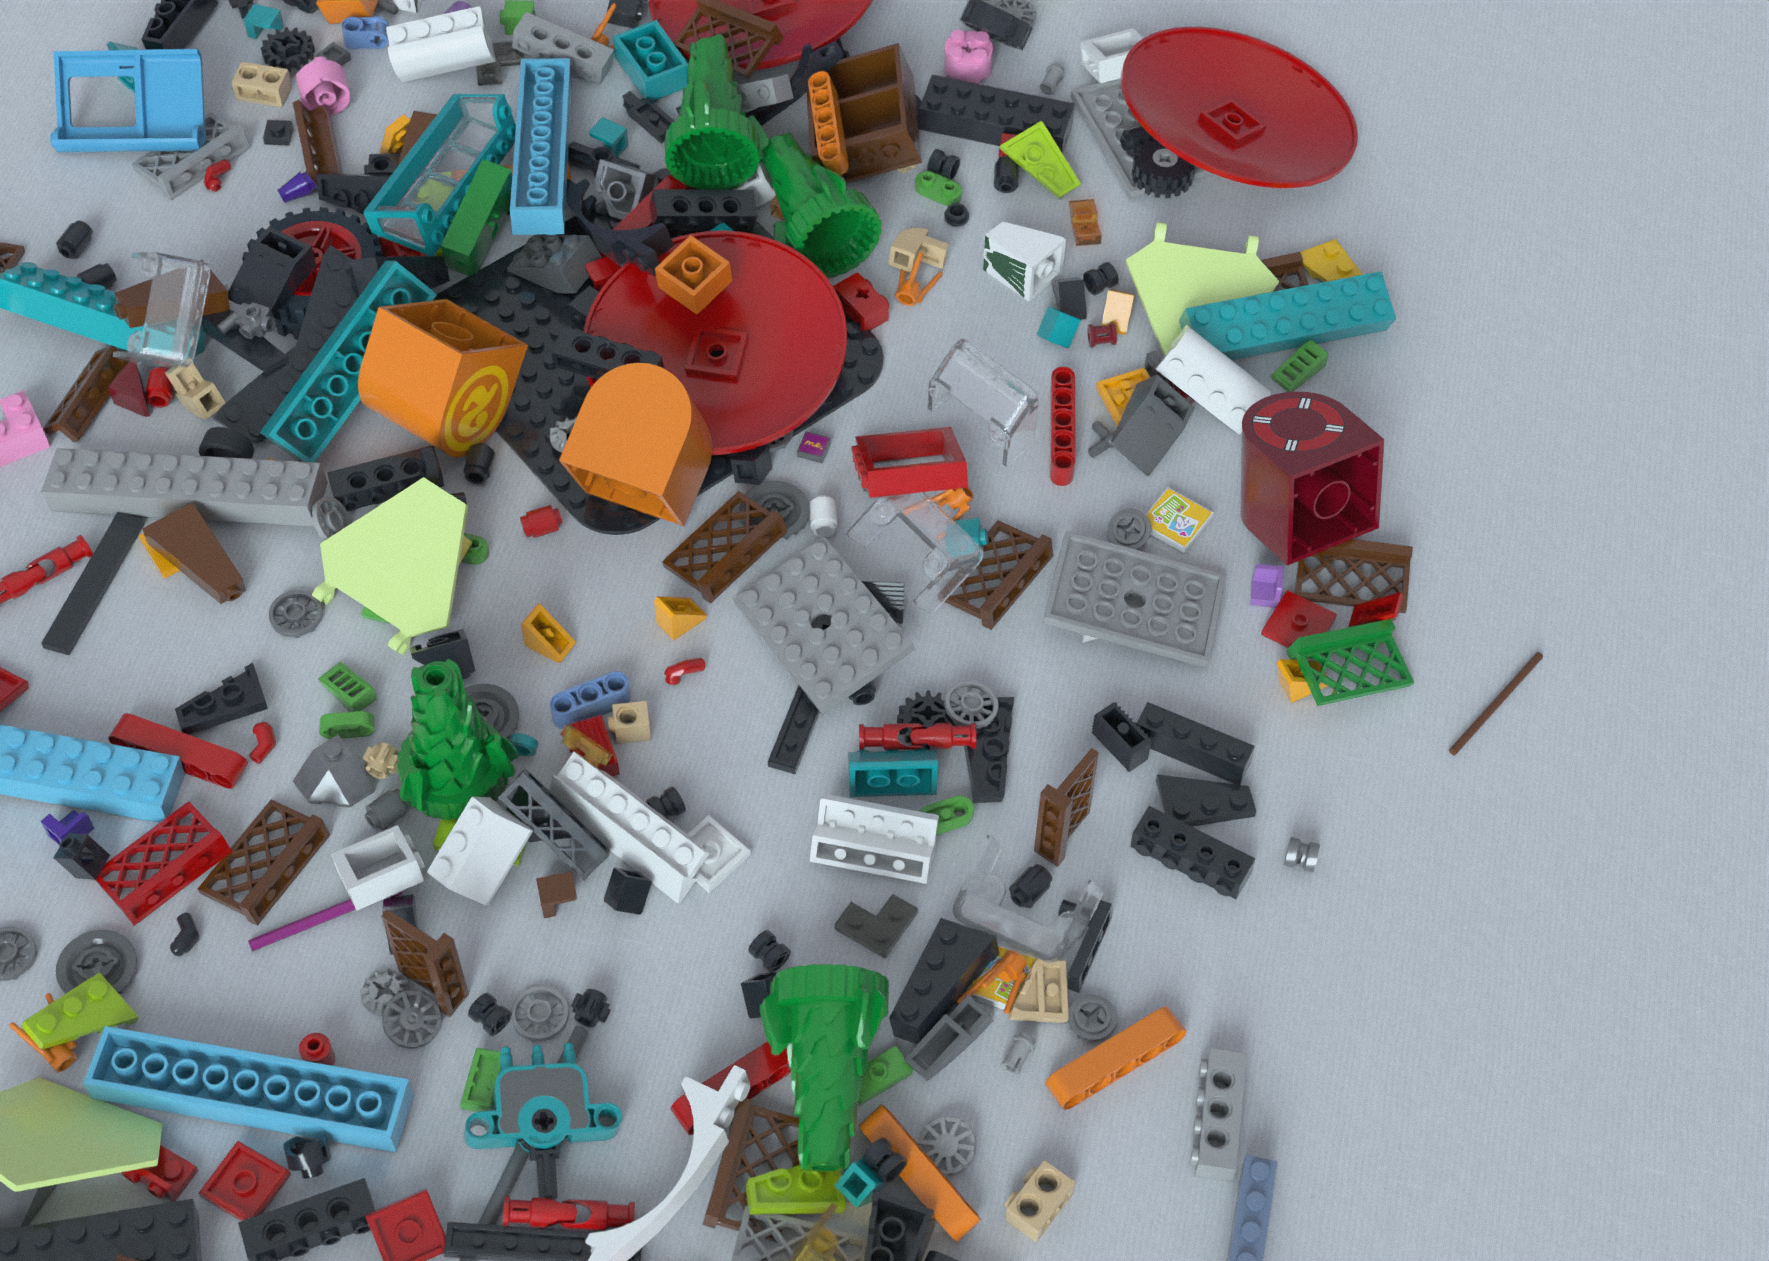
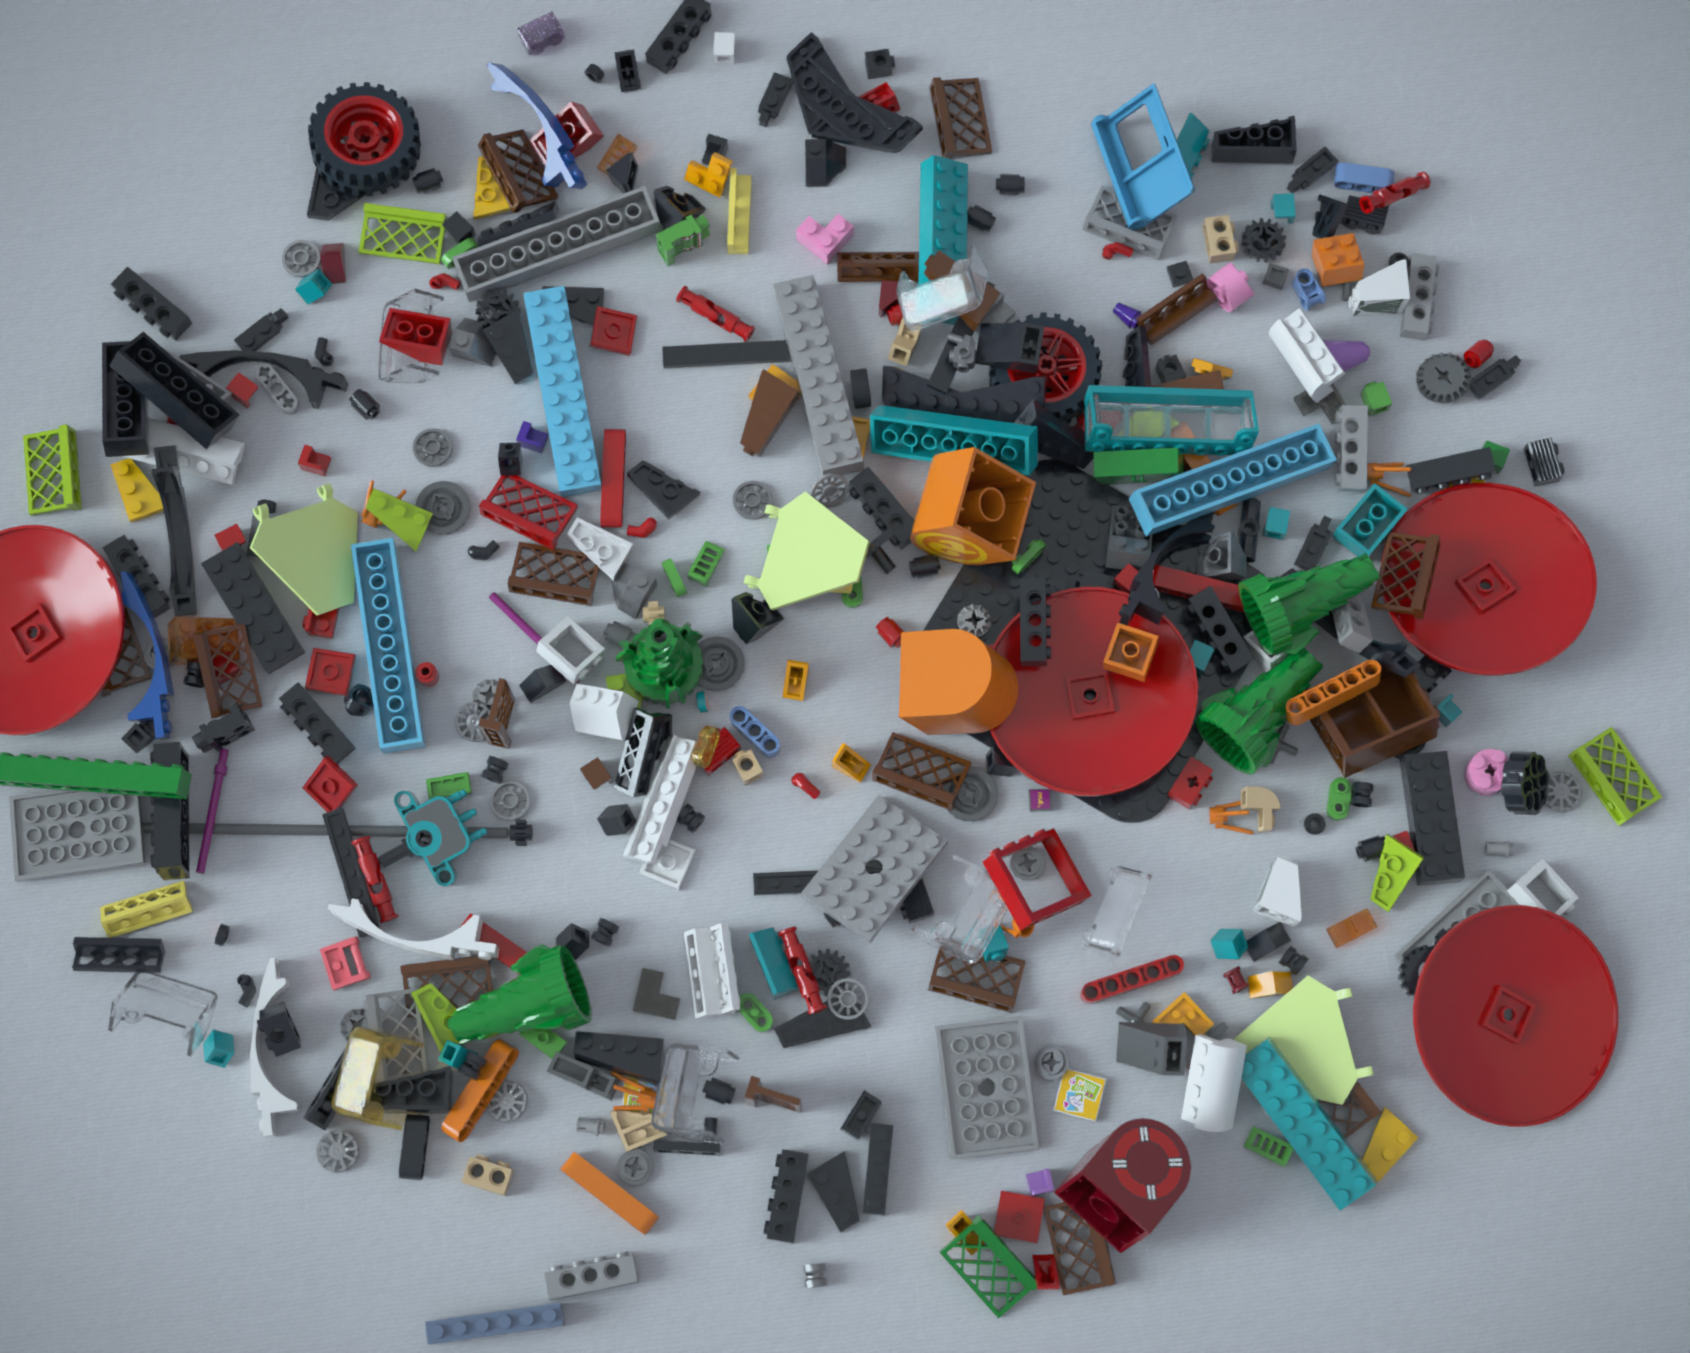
camera: 70 degrees right, 20 degrees up
(258, 793) = (600, 546): none -> white wing
(529, 366) = (1033, 551): none -> bright green plate
(823, 516) = (976, 831): white brick -> none

